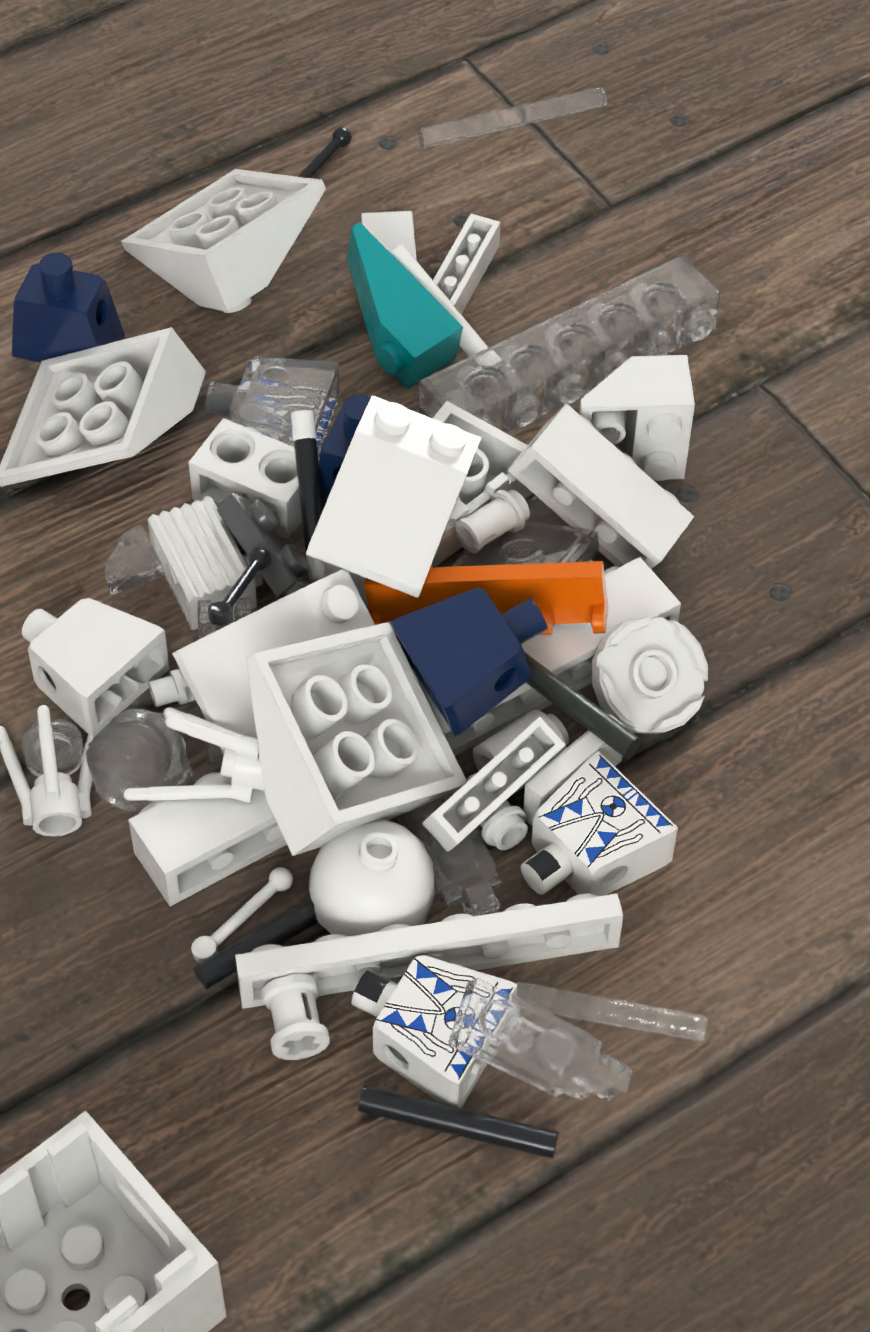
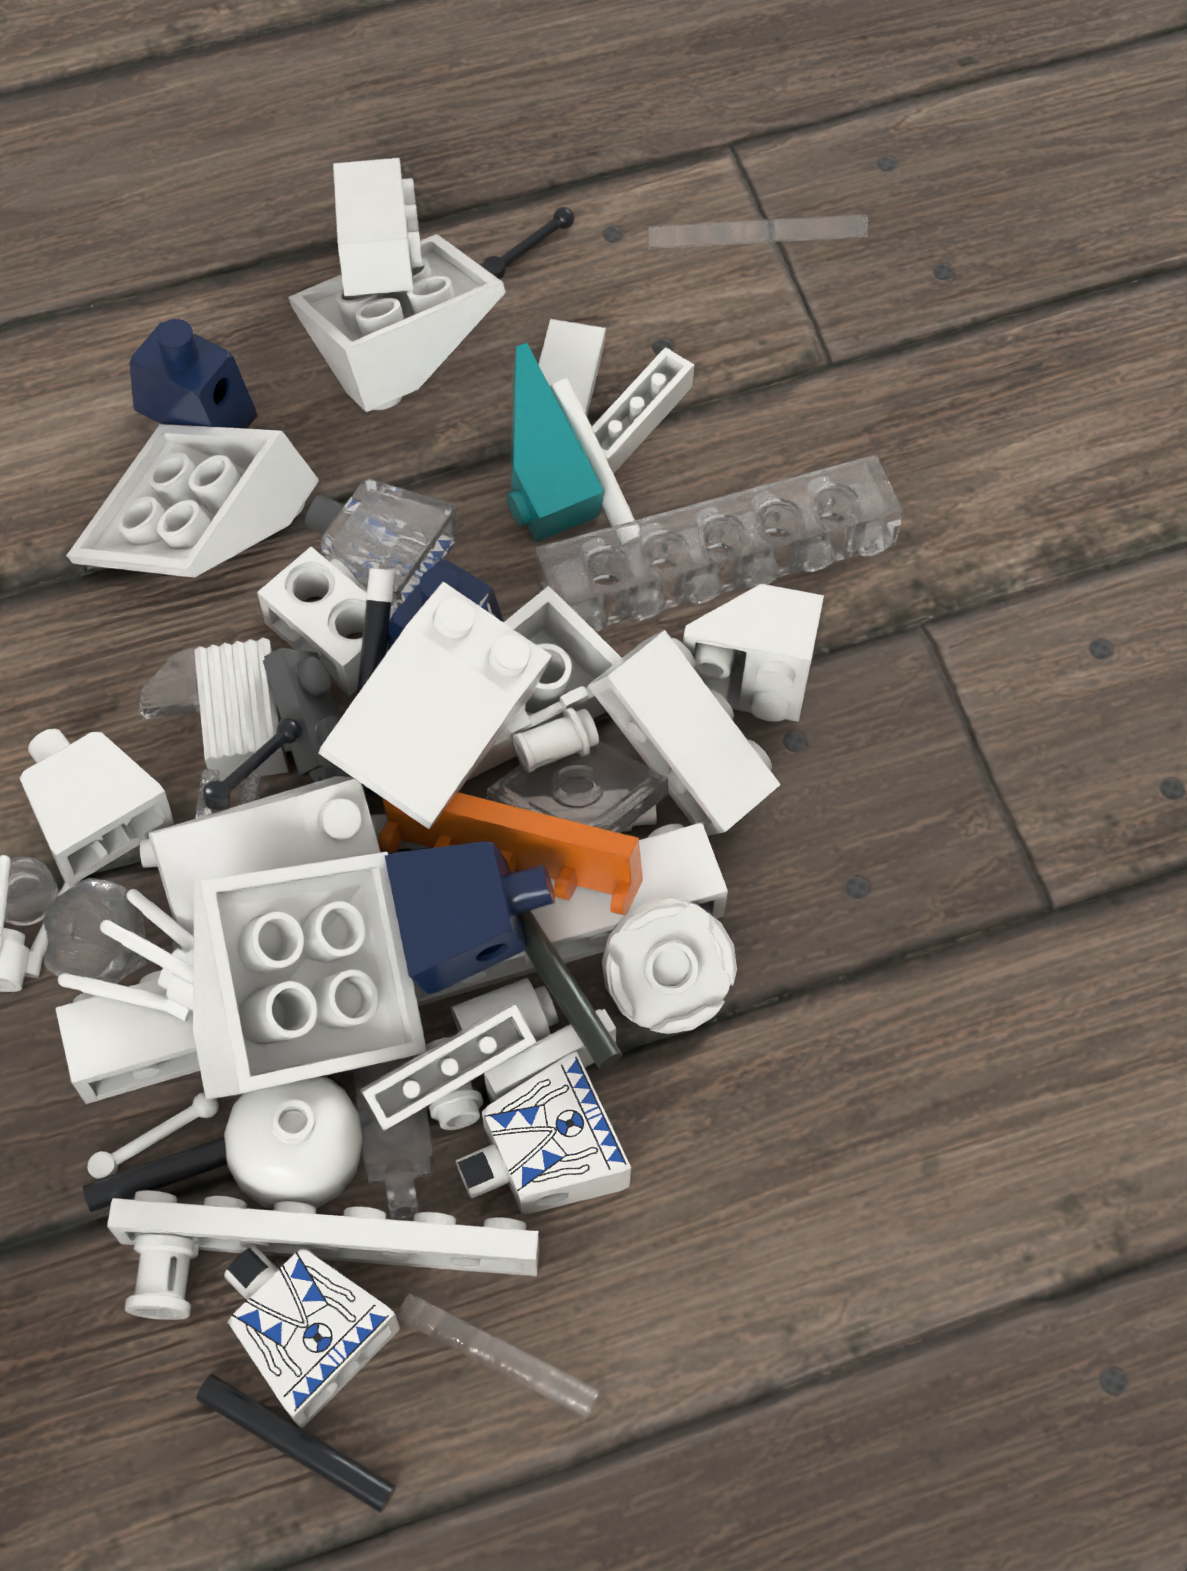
camera: 15 degrees right, 10 degrees up
(188, 165) = (376, 227): none -> white brick
(534, 1045) = (388, 1388): clear hinge -> none

